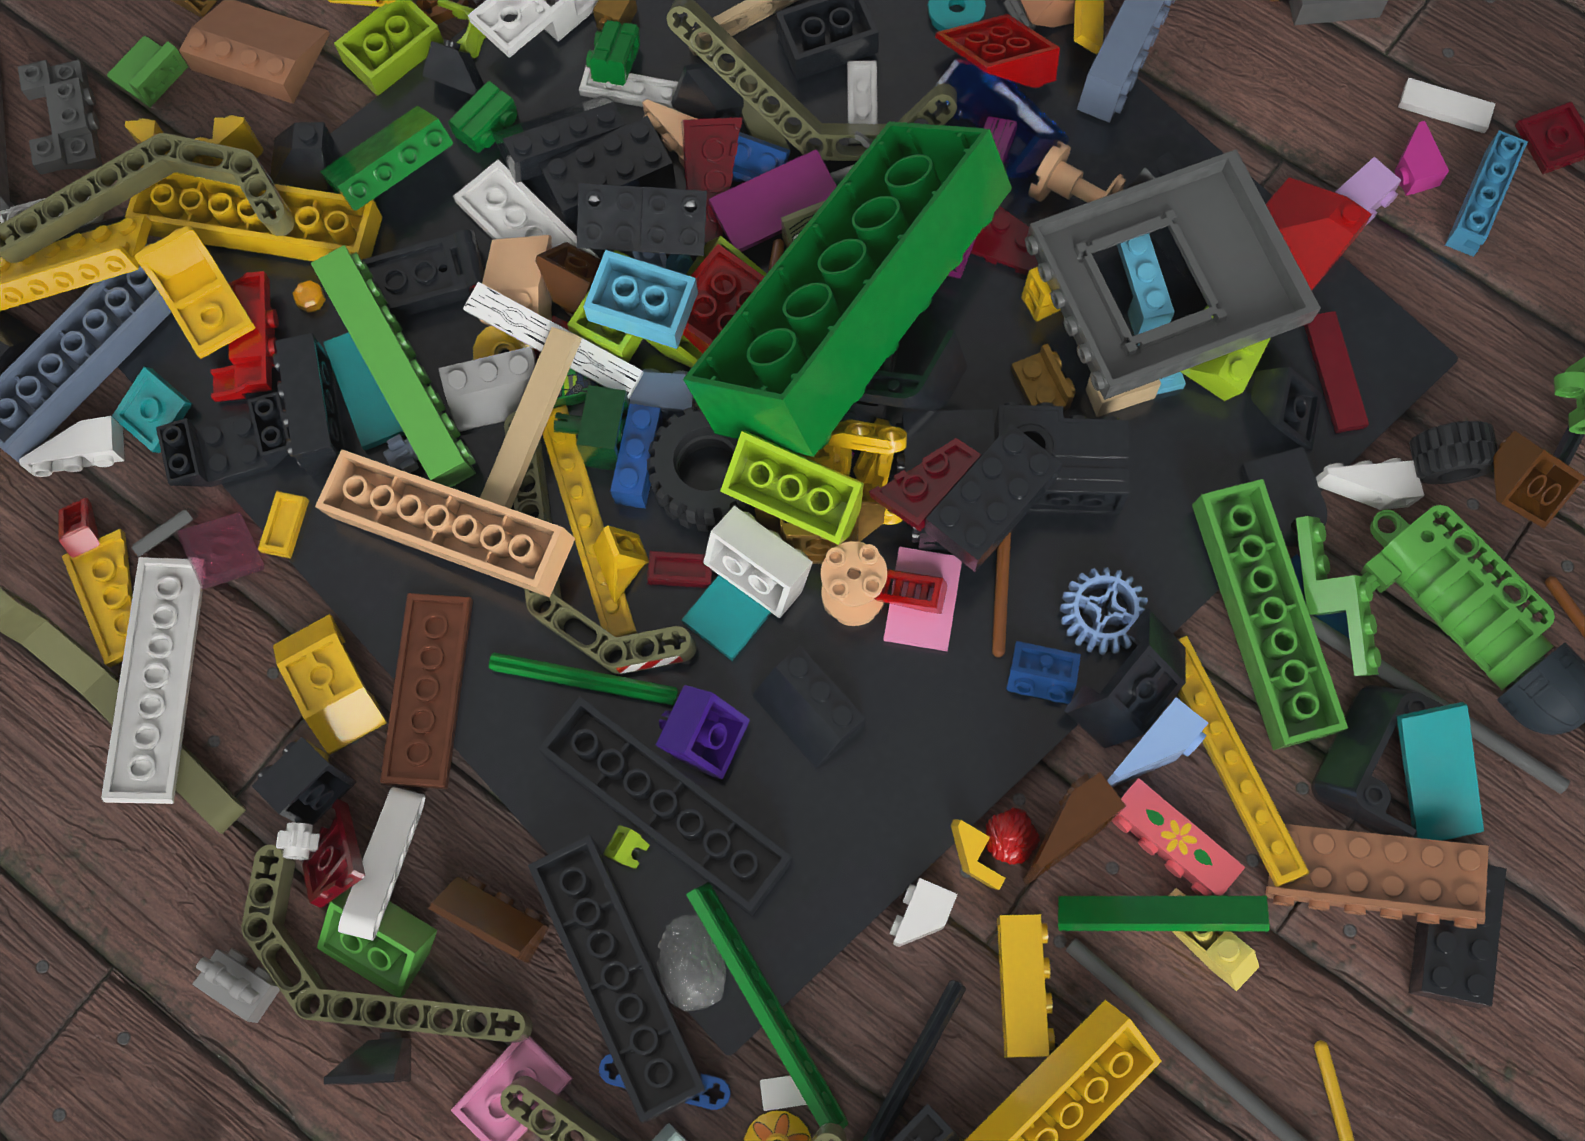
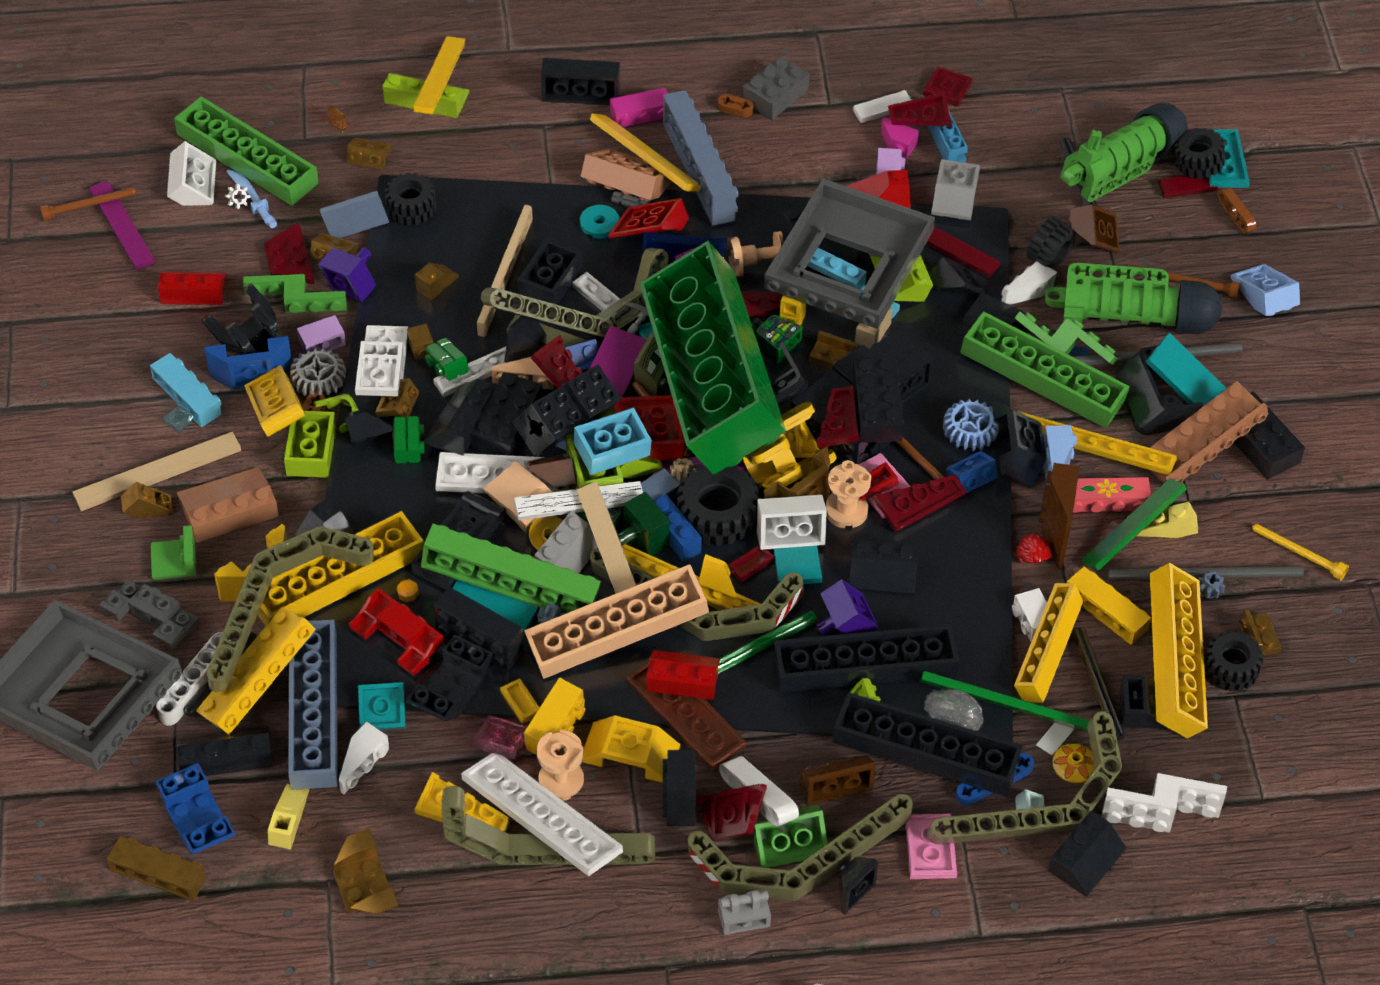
camera: 50 degrees left, 20 degrees down
(78, 528) = (410, 789): red slope -> none
(164, 531) = (463, 748): dark grey tile -> none
(195, 291) = (361, 619): yellow bracket -> none
(223, 640) = (560, 761): none -> light nougat piece
(274, 581) = (556, 713): none -> yellow brick
(297, 841) = (703, 820): white gear -> none
(387, 157) = (383, 487): green panel -> none
(457, 643) = (682, 674): none -> red slope
(526, 66) = (399, 405): none -> pearl gold bracket
(793, 488) = (783, 459): lime slope -> none
(897, 973) = (1049, 643): none -> yellow brick
(931, 655) = (913, 503): none -> dark red wing
(969, 846) = (1021, 567): yellow slope -> none
(998, 309) = (775, 331): none -> torso
(1186, 1079) = (1211, 585): none -> sand blue gear
(1414, 283) = (955, 189): none -> light grey slope
(1474, 149) = (923, 111): none -> dark red wing

